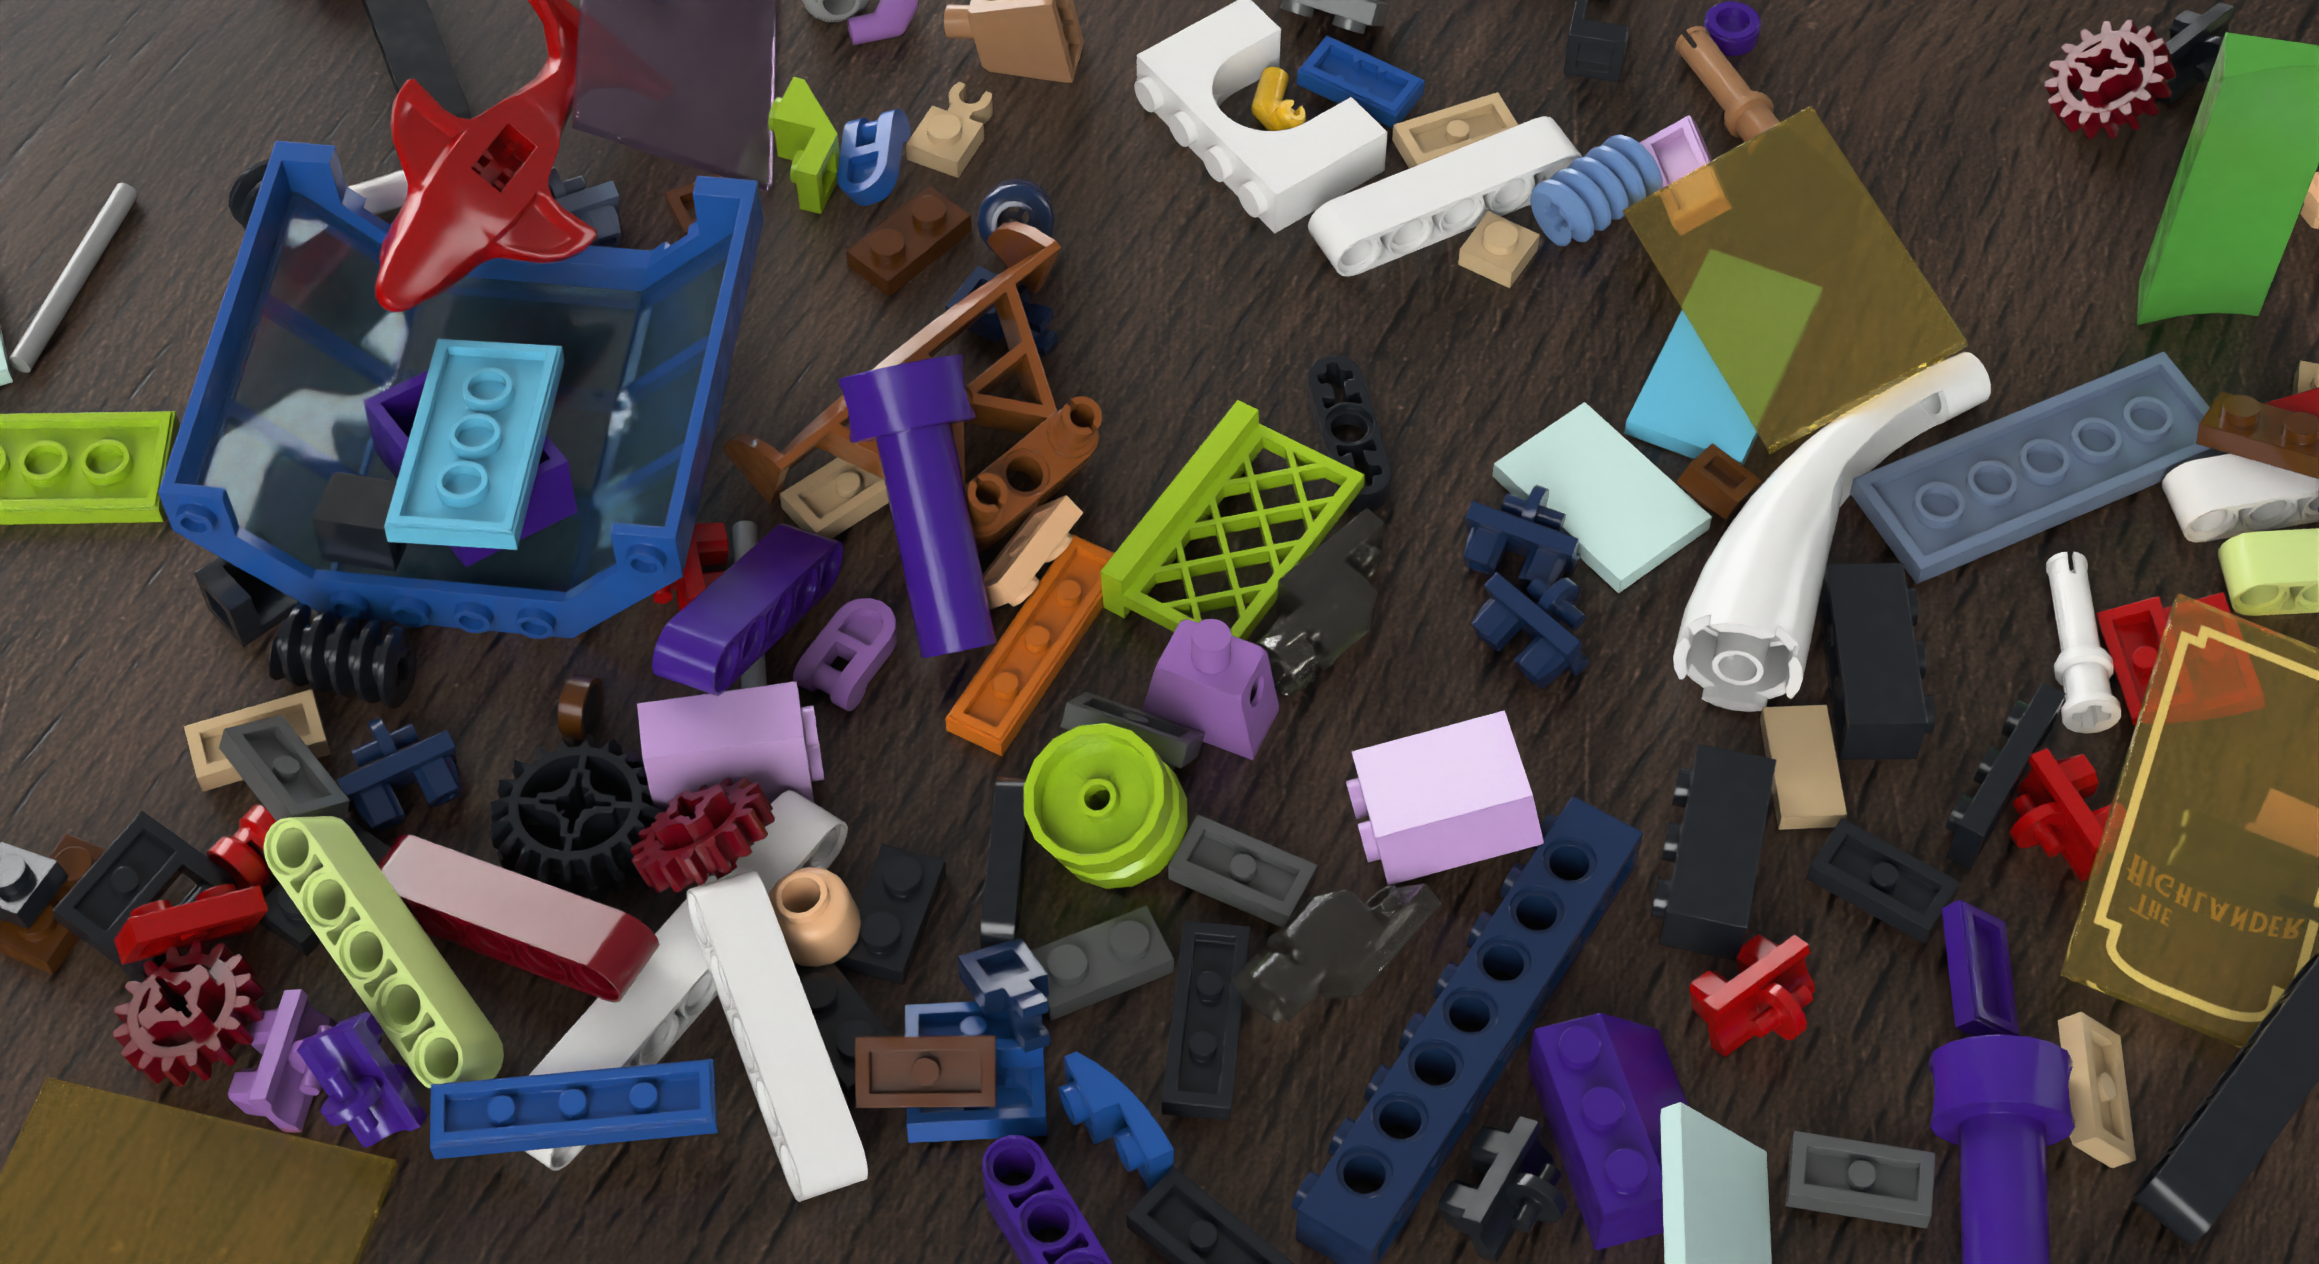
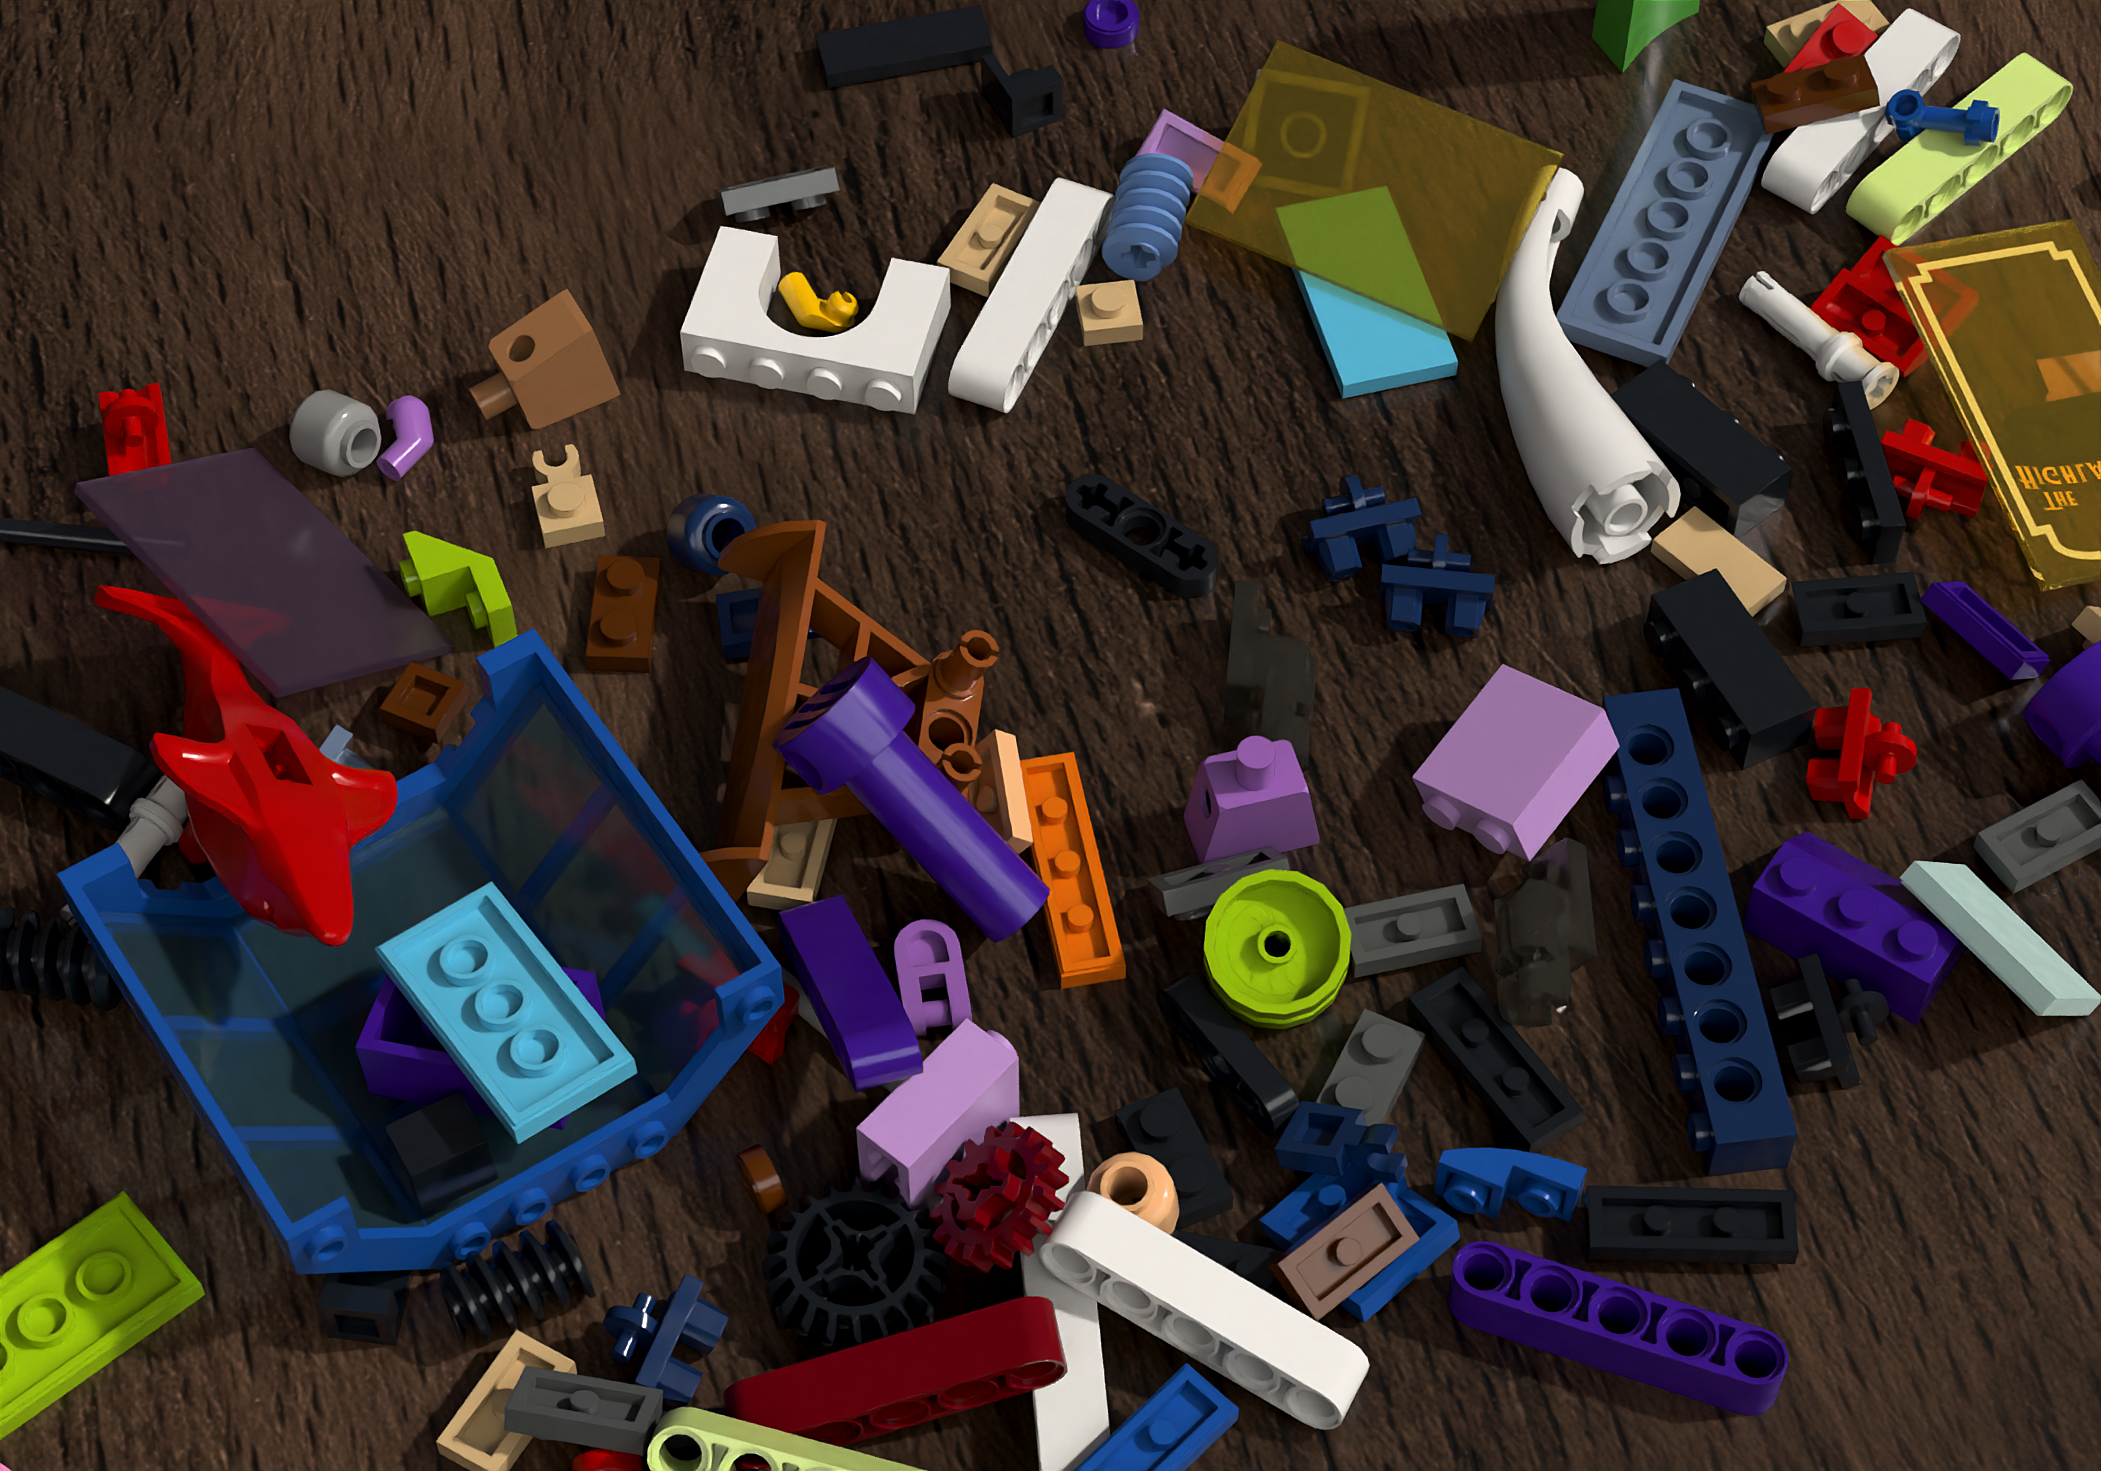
camera: 40 degrees left, 0 degrees up
(872, 156) = (536, 576): blue plate -> none
(1195, 495) = (1087, 669): lime fence -> none
(1345, 72) = (867, 243): blue plate -> none
(1611, 494) = (1384, 446): light aqua tile -> none
(1718, 482) = (1458, 388): reddish brown plate -> none
(1745, 110) = (1196, 80): medium nougat pin -> none

